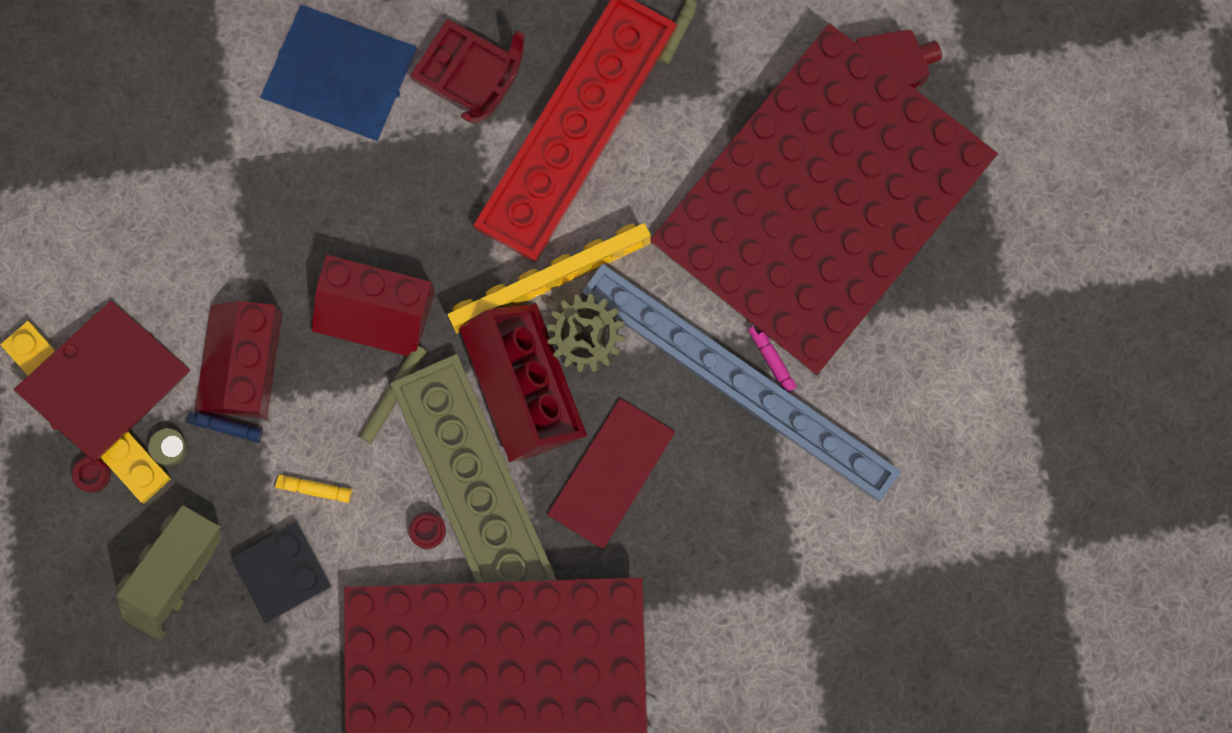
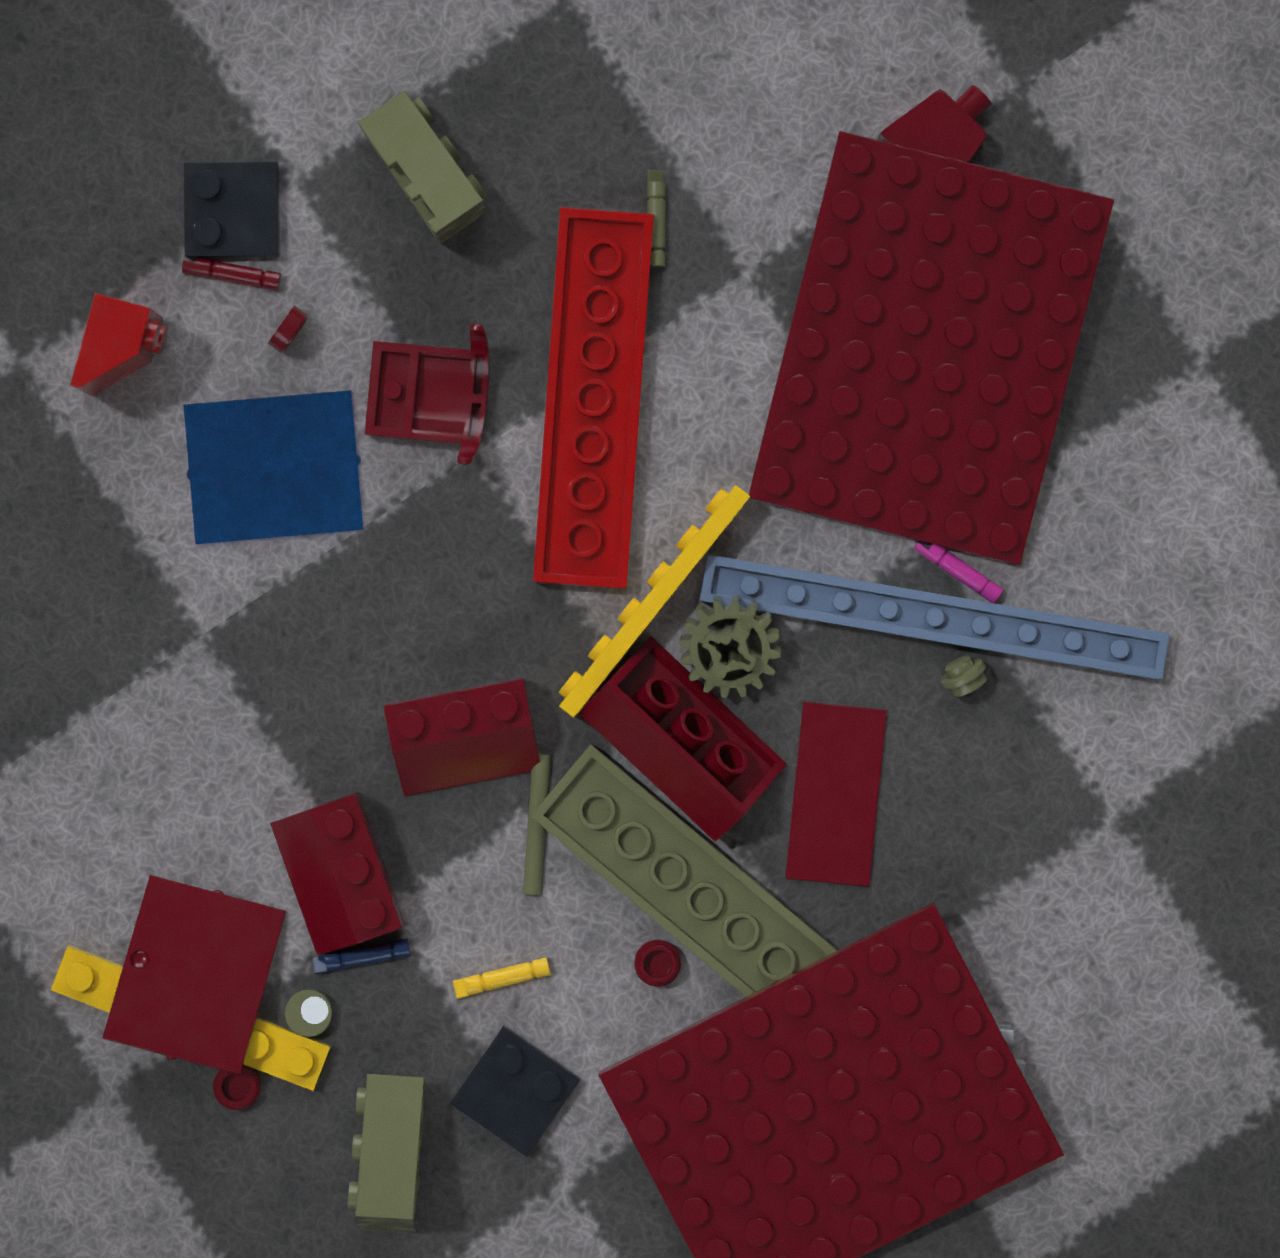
camera: 30 degrees left, 10 degrees up
(741, 431) = (964, 675): none -> olive plate

